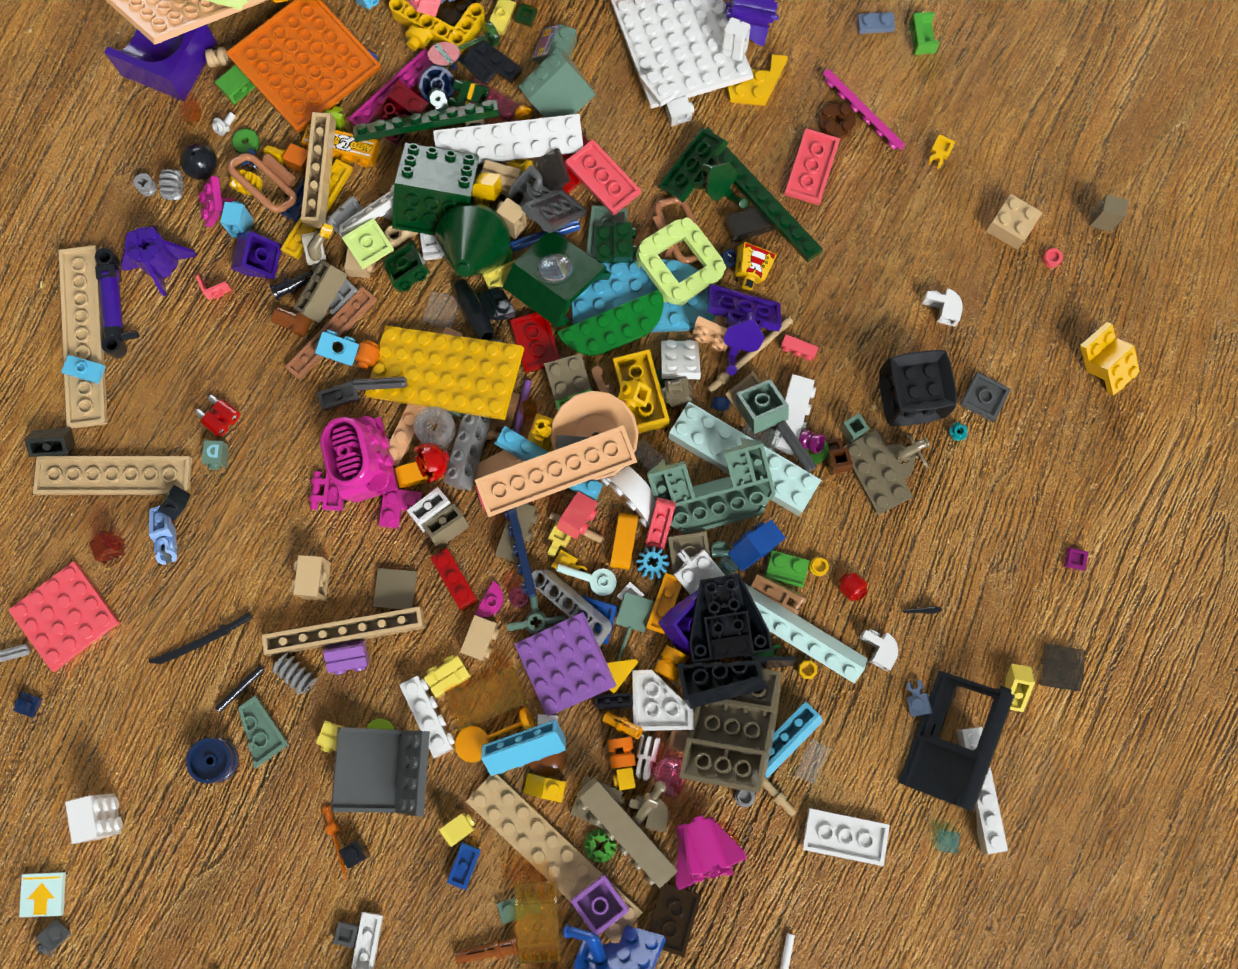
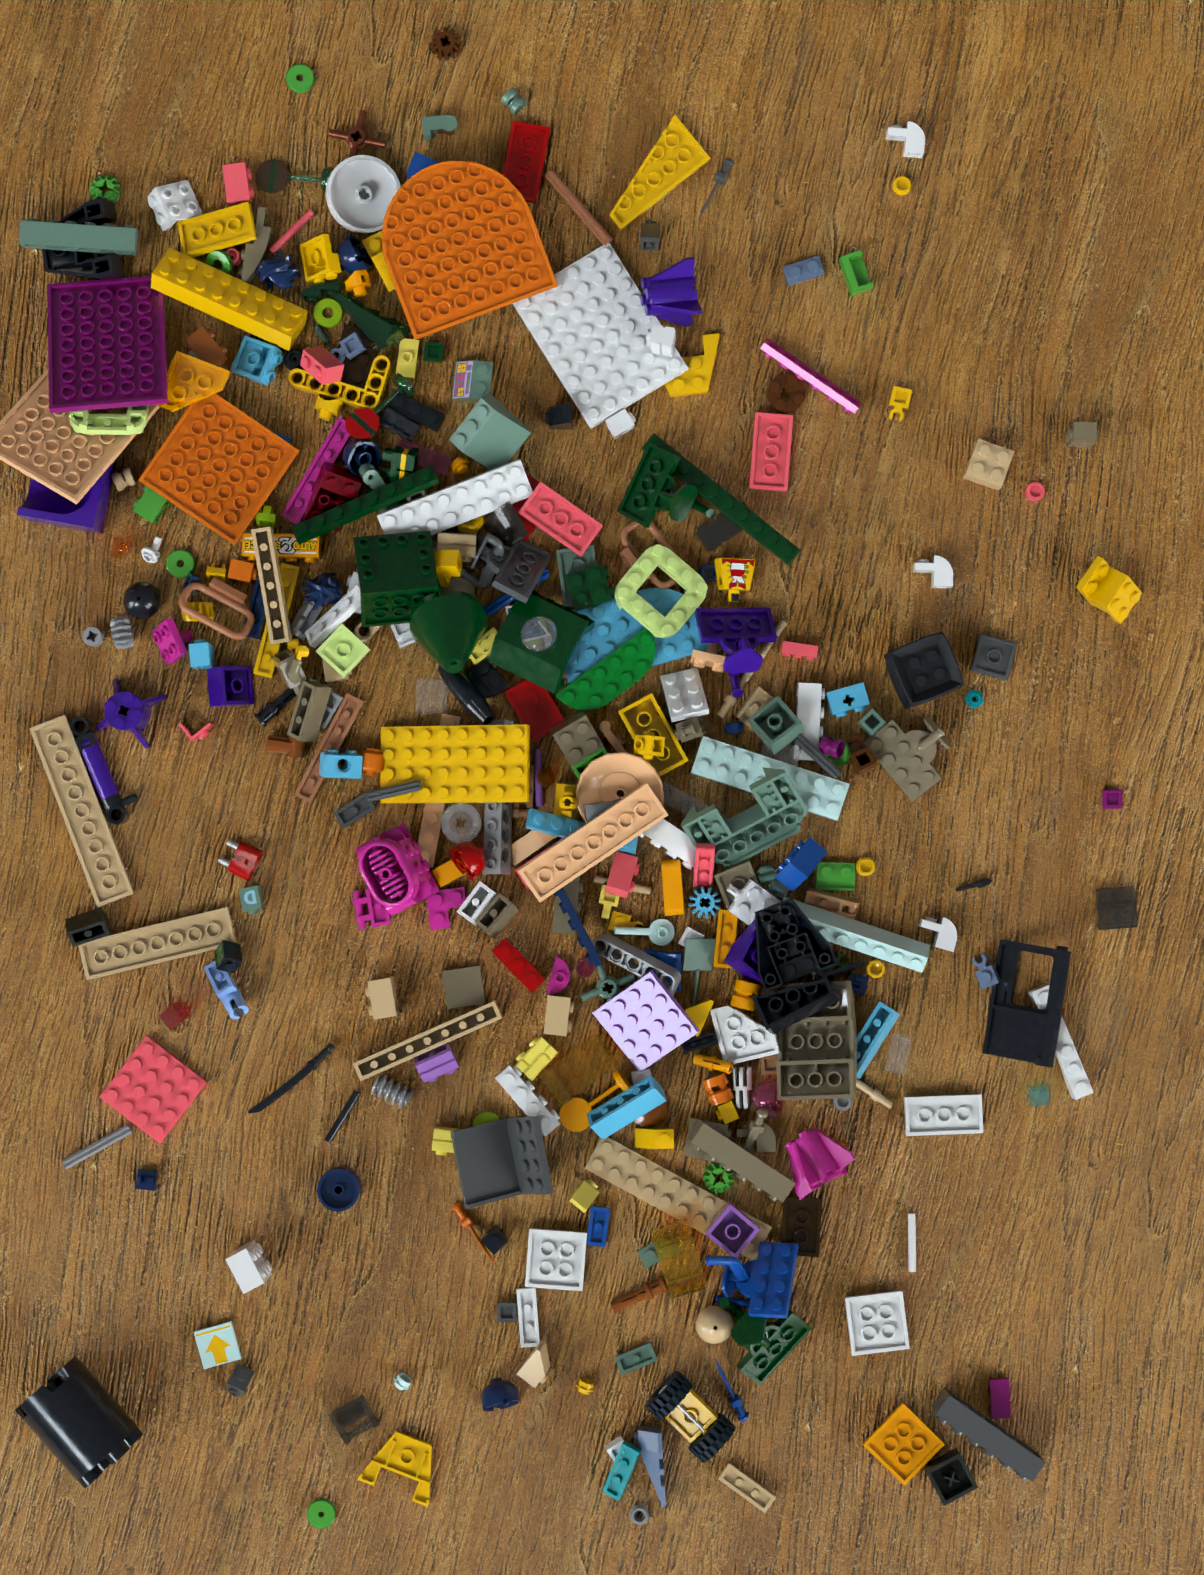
camera: 10 degrees left, 10 degrees up
(83, 369) = (96, 846): medium azure plate -> none
(262, 732) = (375, 1150): sand green wing -> none
(366, 188) = (323, 589): none -> dark blue hair
(406, 267) = (385, 662): dark green plate -> none
(411, 890) = (555, 1259): none -> white plate
(513, 216) = (479, 588): tan brick -> none
(626, 91) = (559, 417): none -> black slope
(657, 87) = (593, 408): white plate -> none
(788, 680) = (858, 983): none -> dark blue tile
(843, 397) = (836, 697): none -> medium azure brick
(853, 586) = (902, 879): red head -> none
(1021, 682) = (1077, 937): light yellow slope -> none

